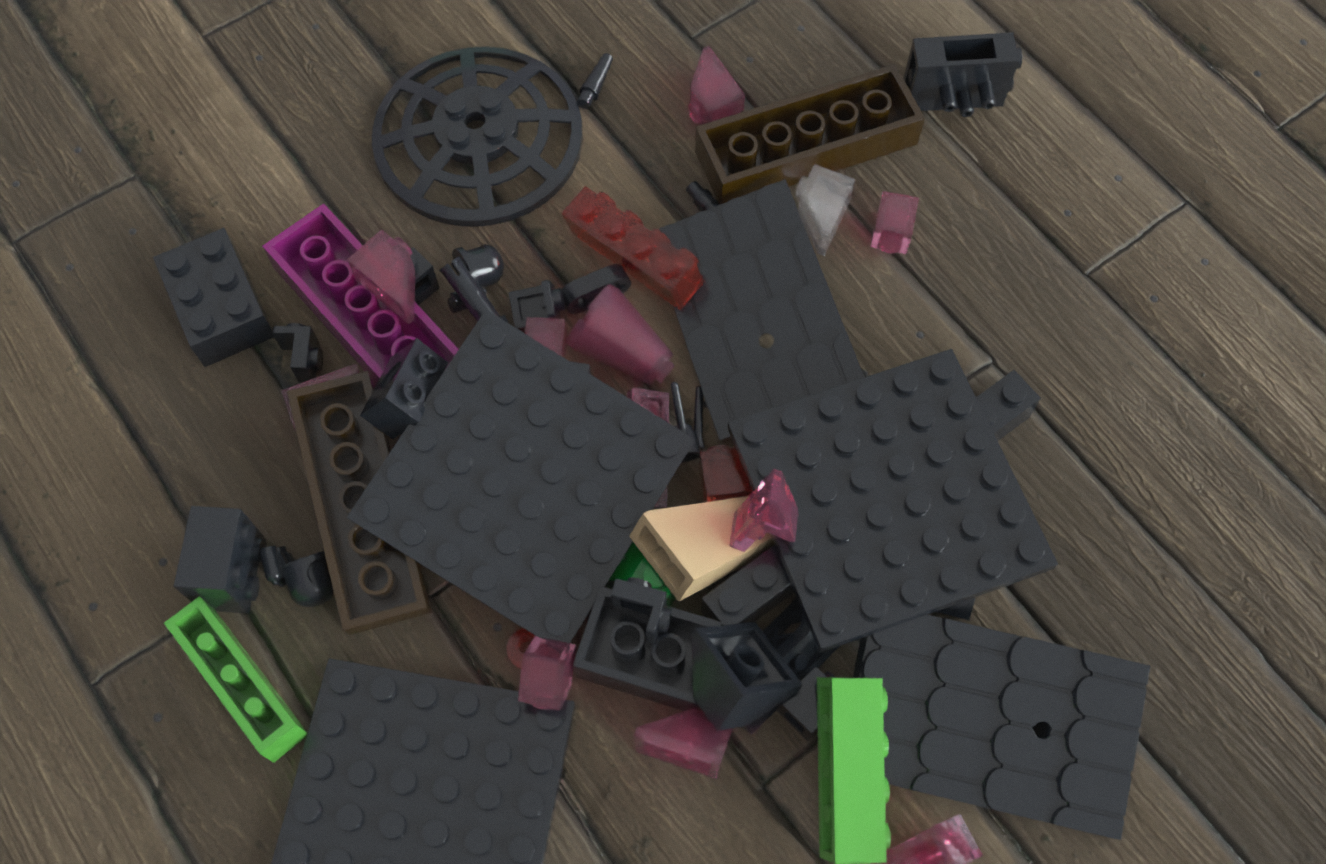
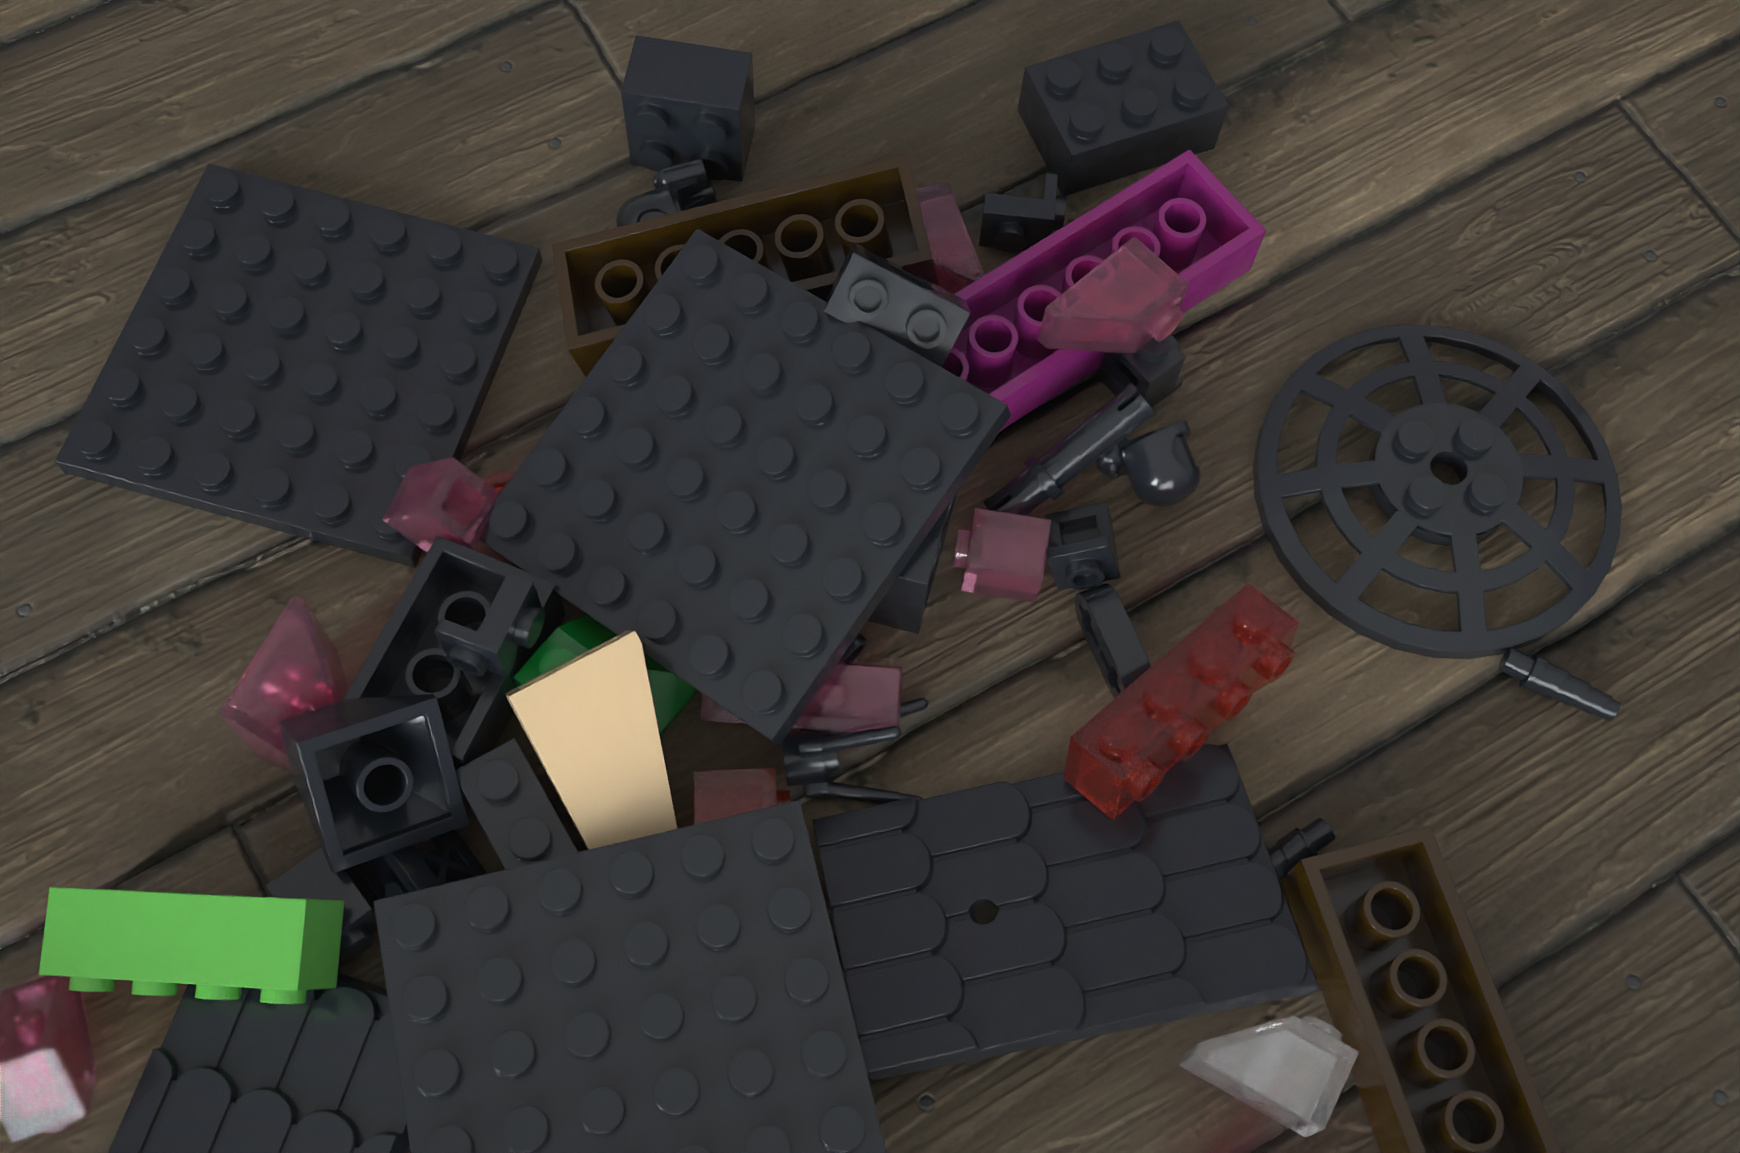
camera: 90 degrees right, 0 degrees up
(236, 679) = (516, 134): bright green brick -> none
(621, 338) = (1006, 669): clear pink cone -> none
(713, 91) = (1533, 886): clear pink slope -> none
(765, 510) = (600, 833): clear pink slope -> none

